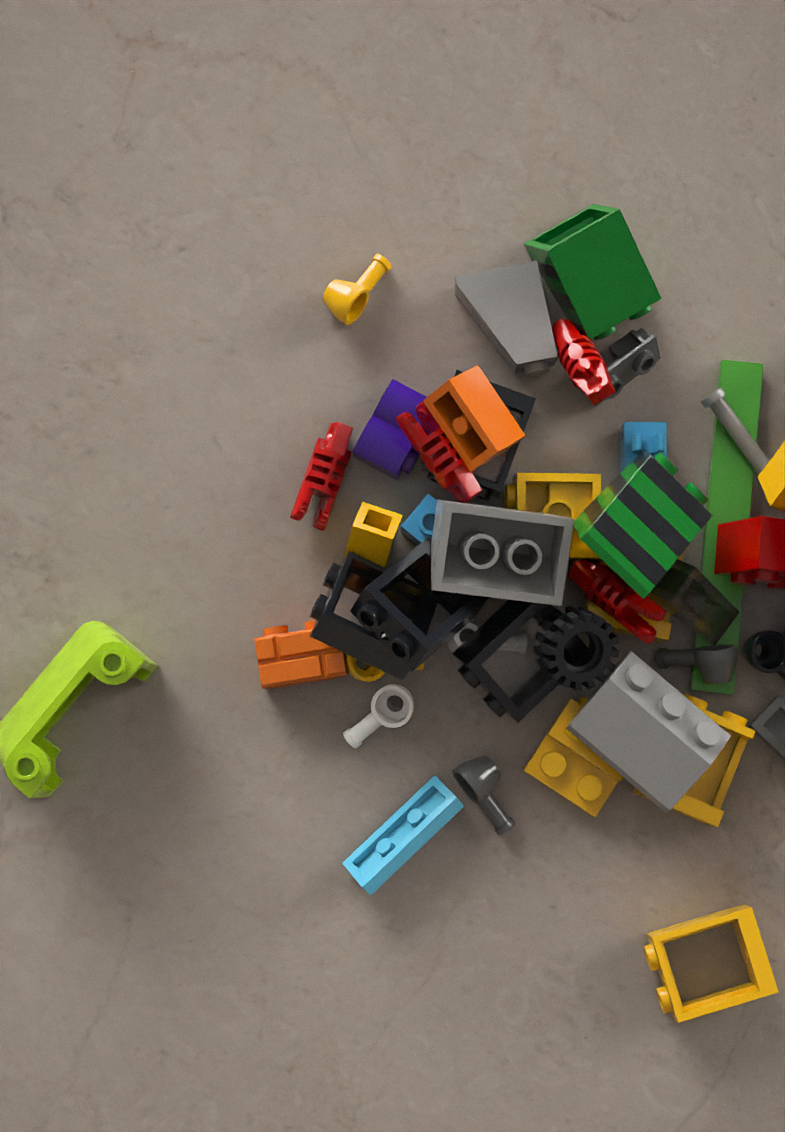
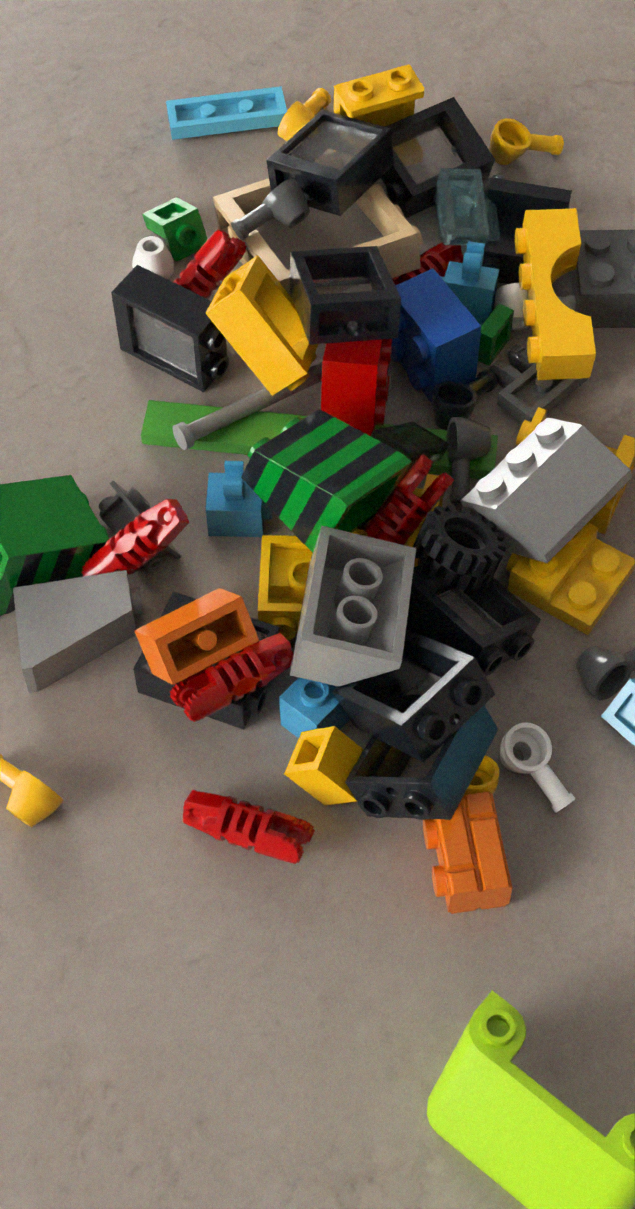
camera: 90 degrees left, 25 degrees down
(382, 440) = (202, 752): dark purple brick -> none

